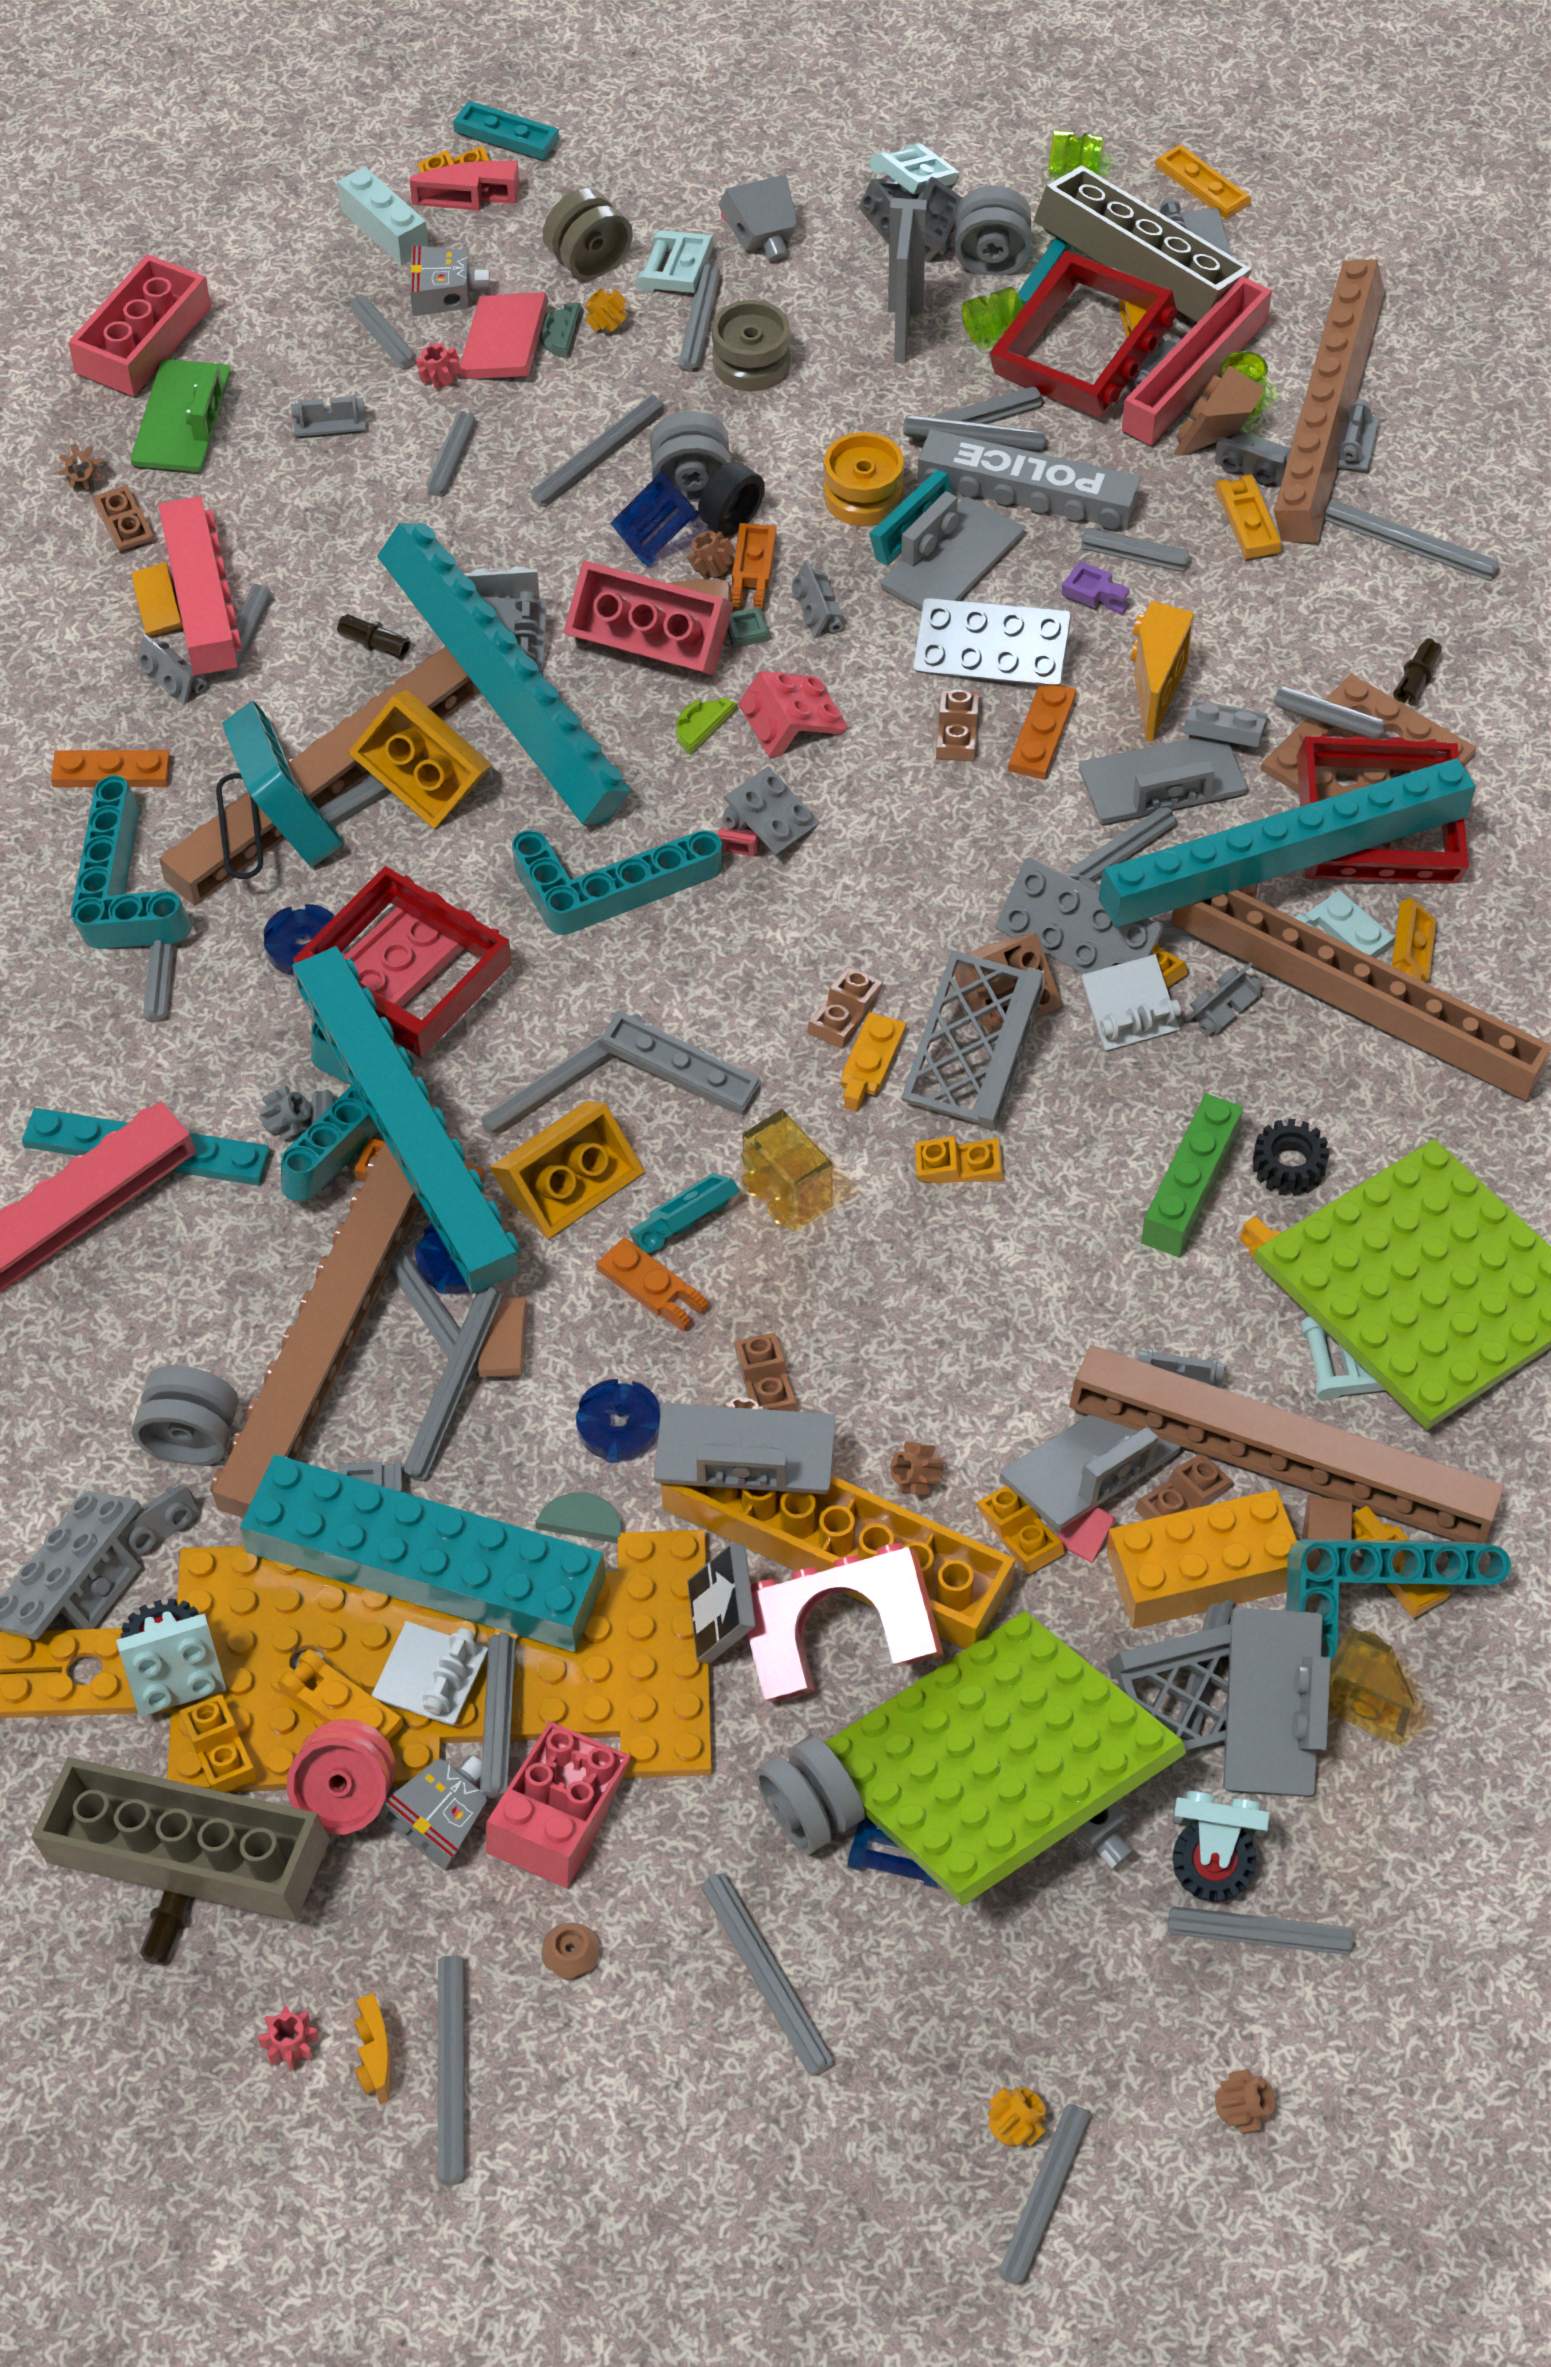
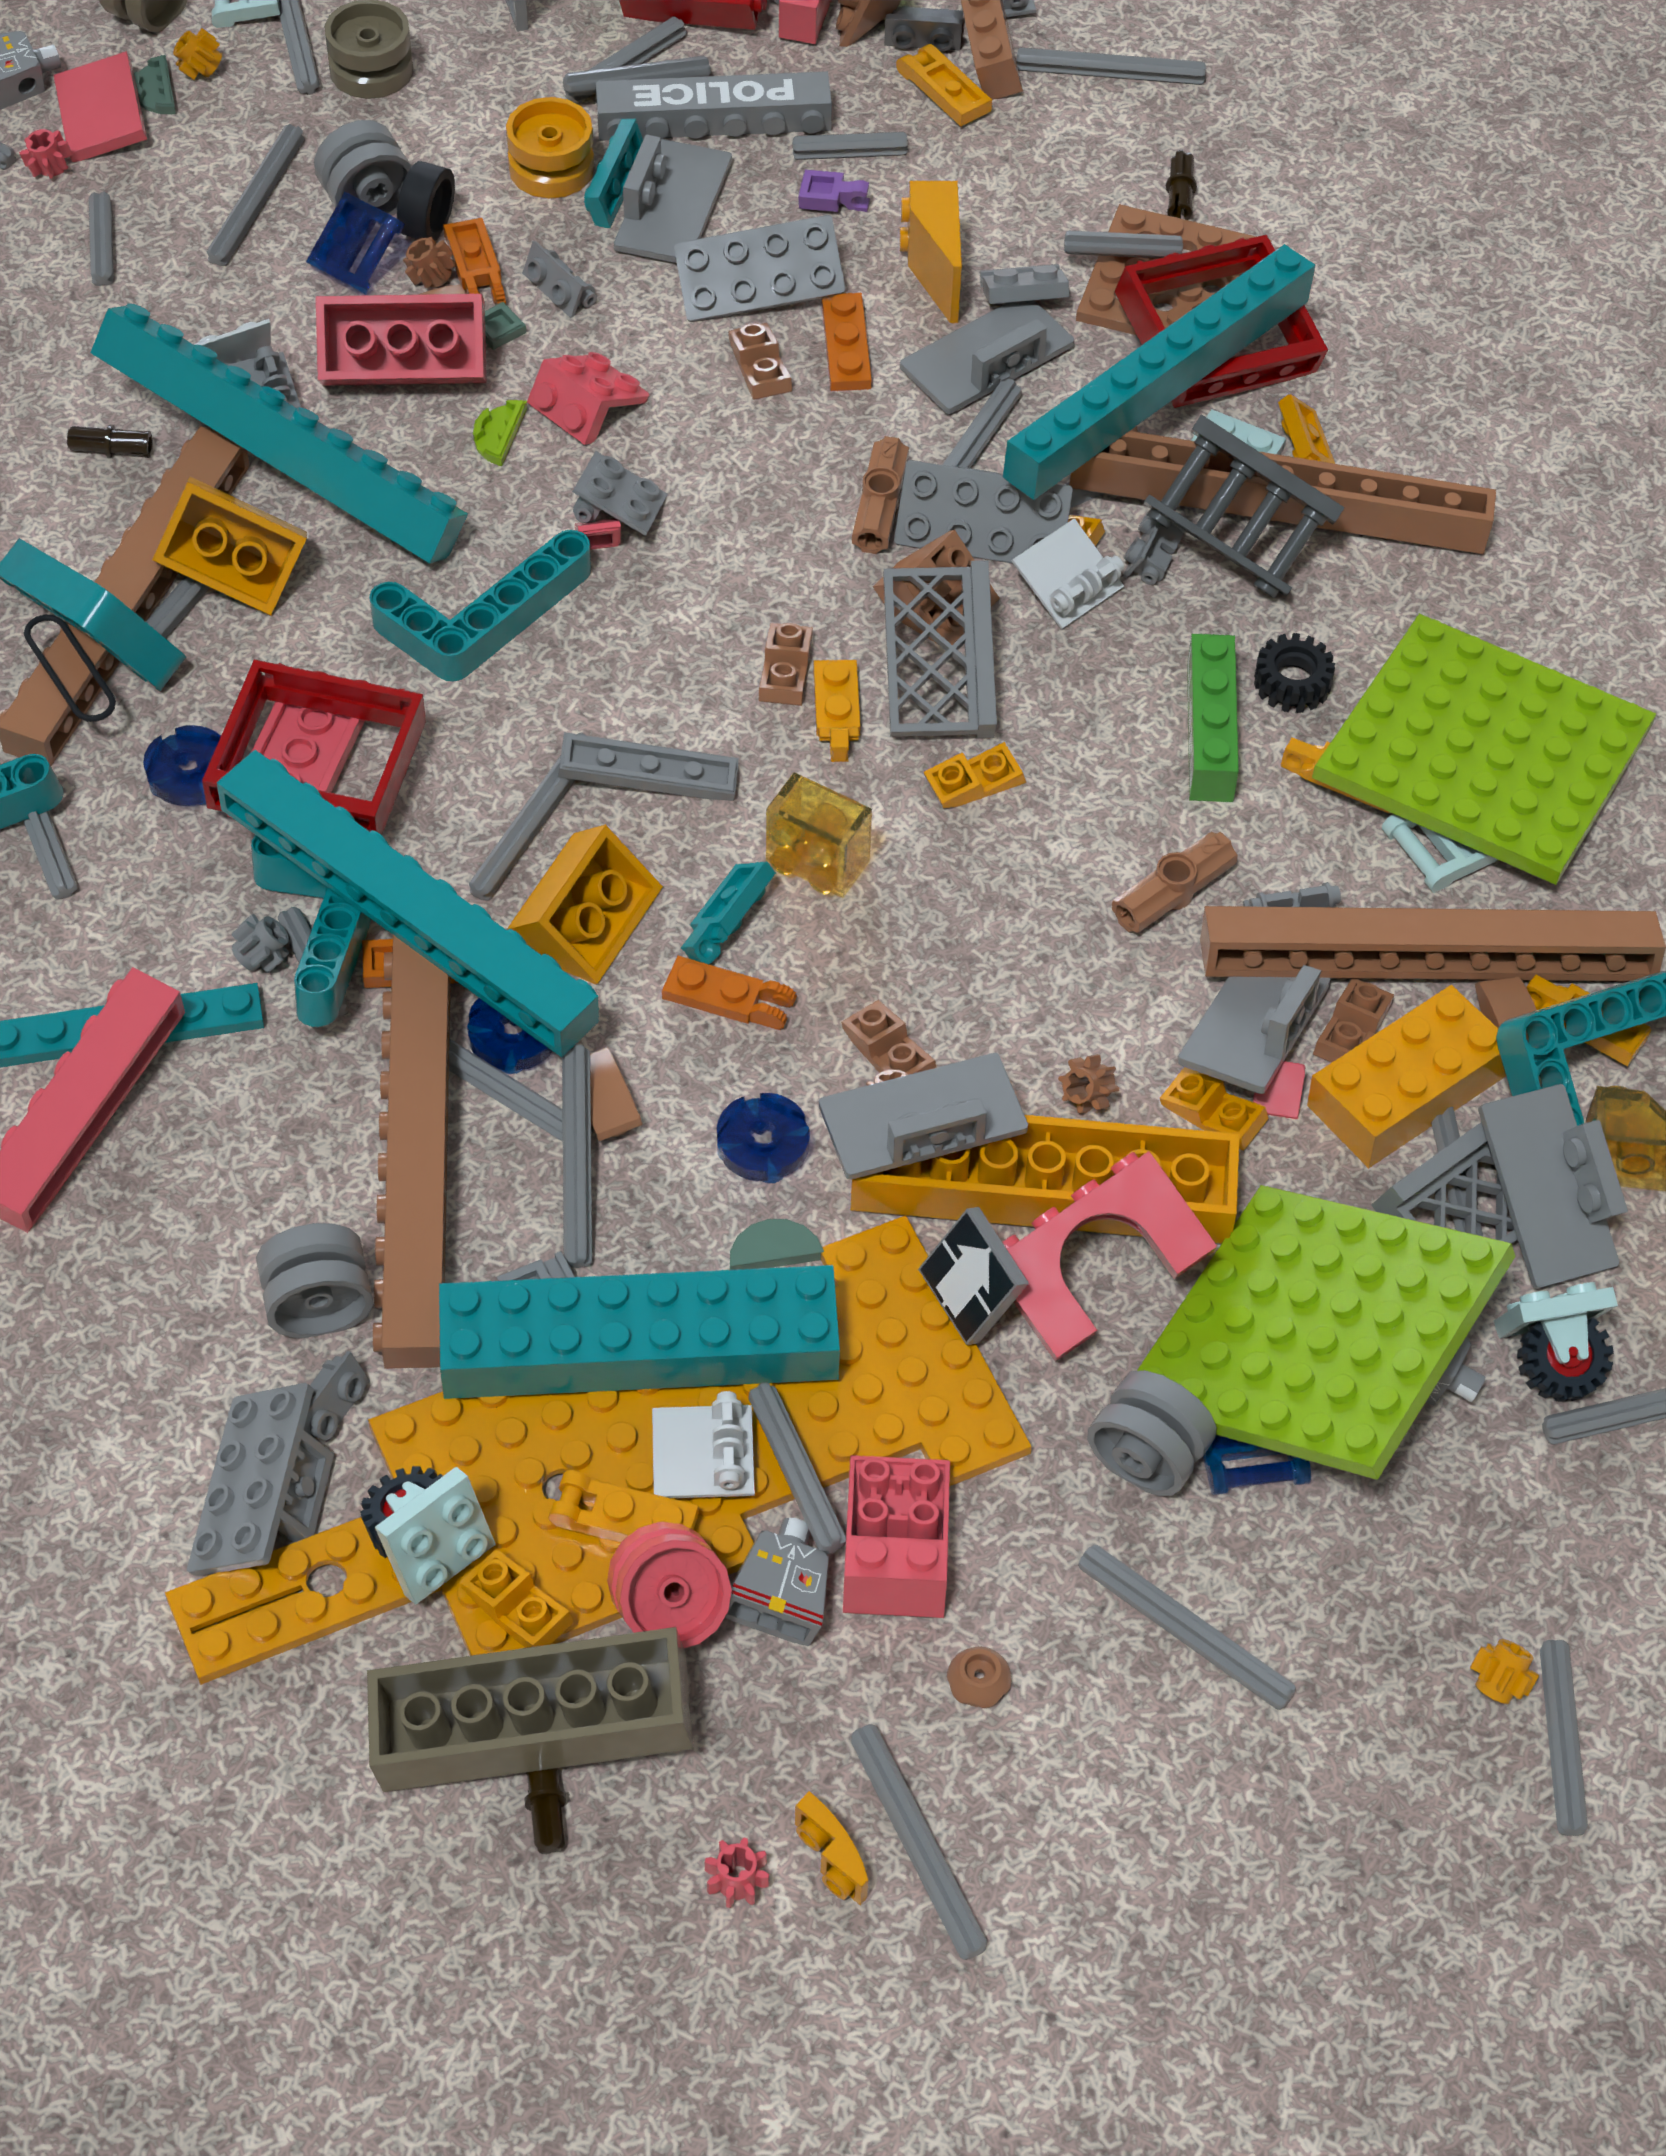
camera: 25 degrees left, 0 degrees up
(997, 880) = (880, 495): none -> nougat piece
(1106, 1308) = (1174, 881): none -> nougat piece
(1345, 984) = (1245, 464): none -> dark grey fence

